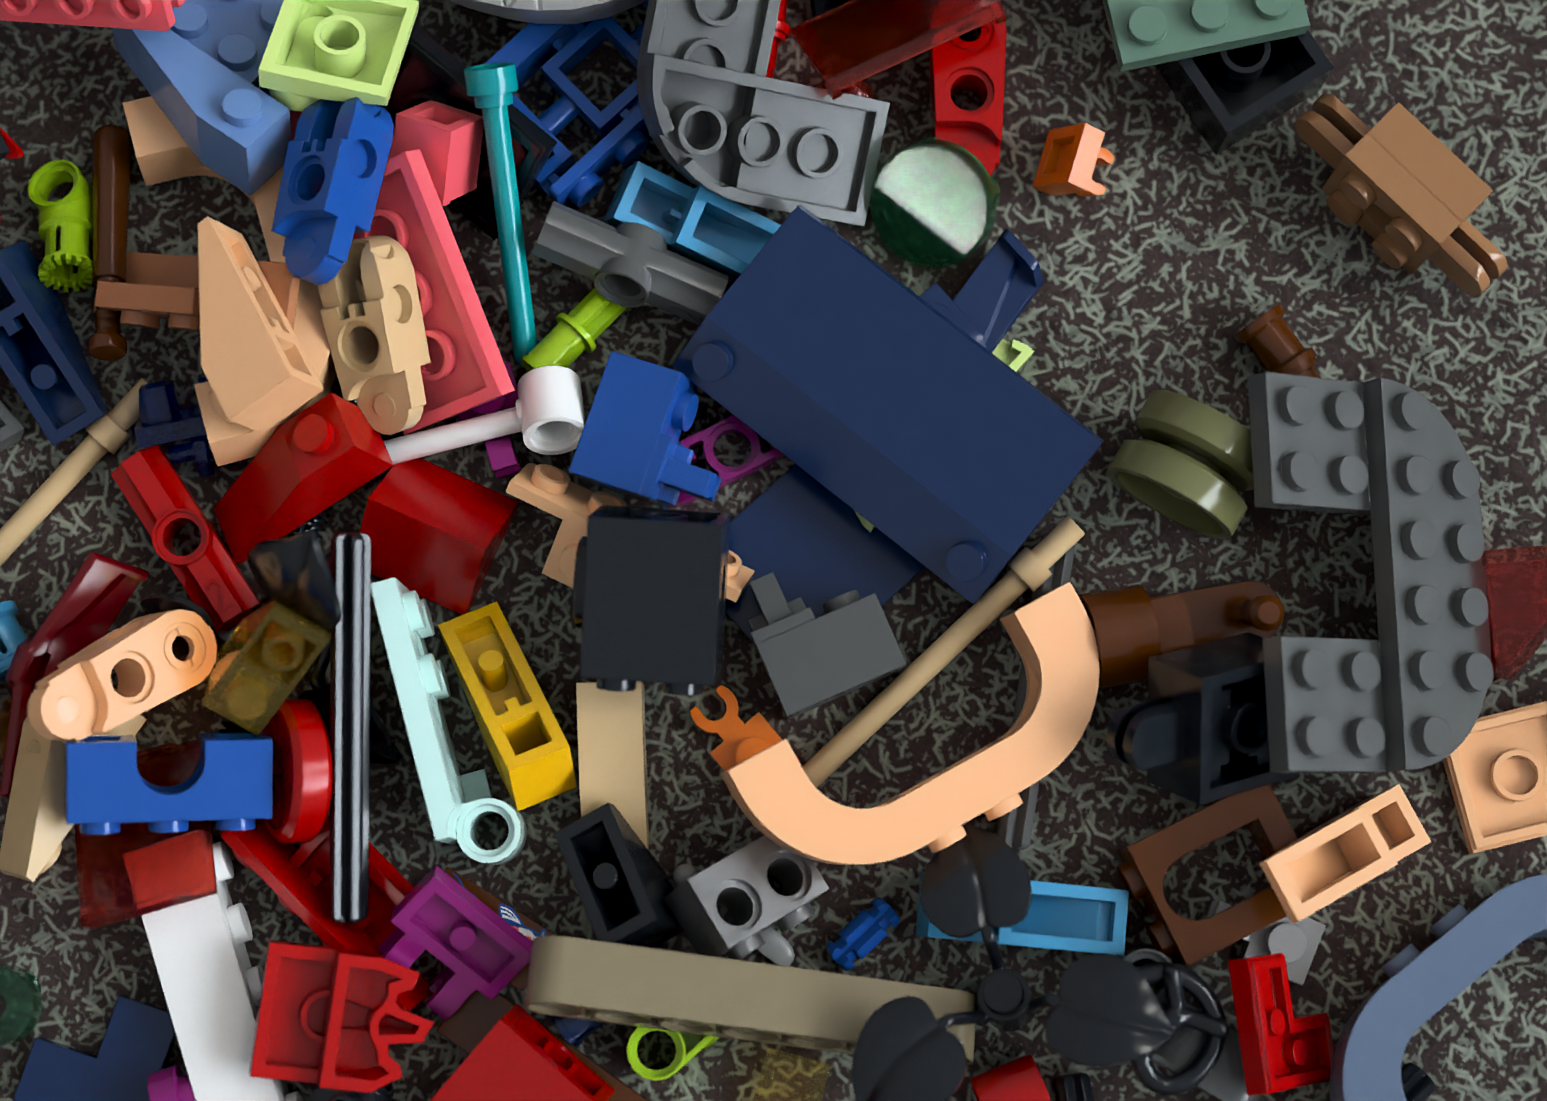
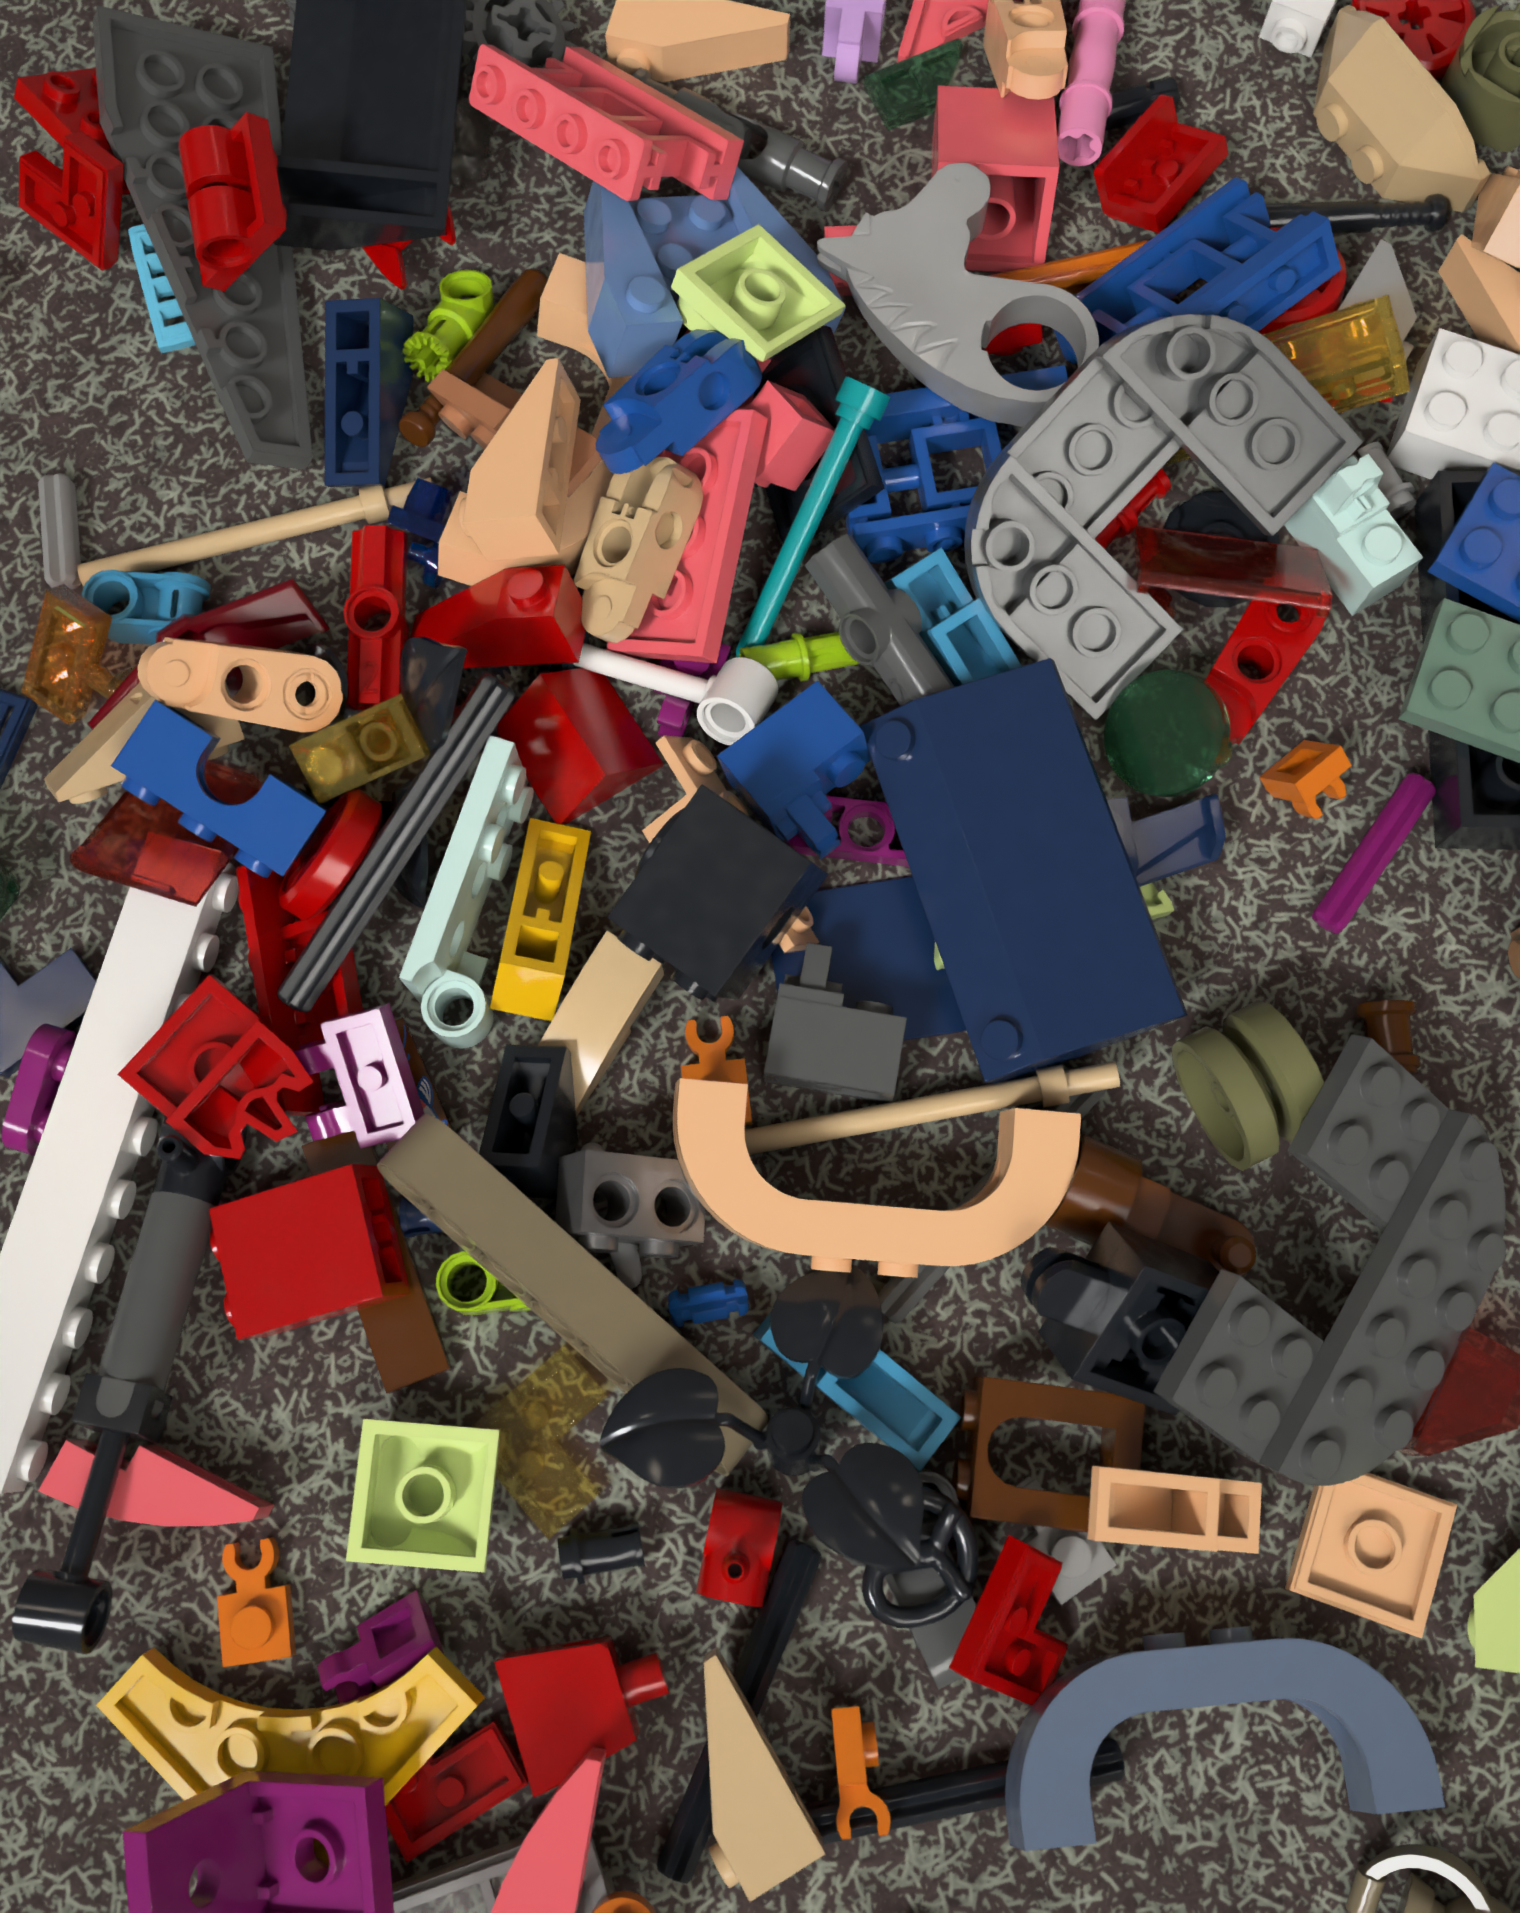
camera: 30 degrees right, 5 degrees down
(1168, 192) = (1374, 853): none -> magenta axle

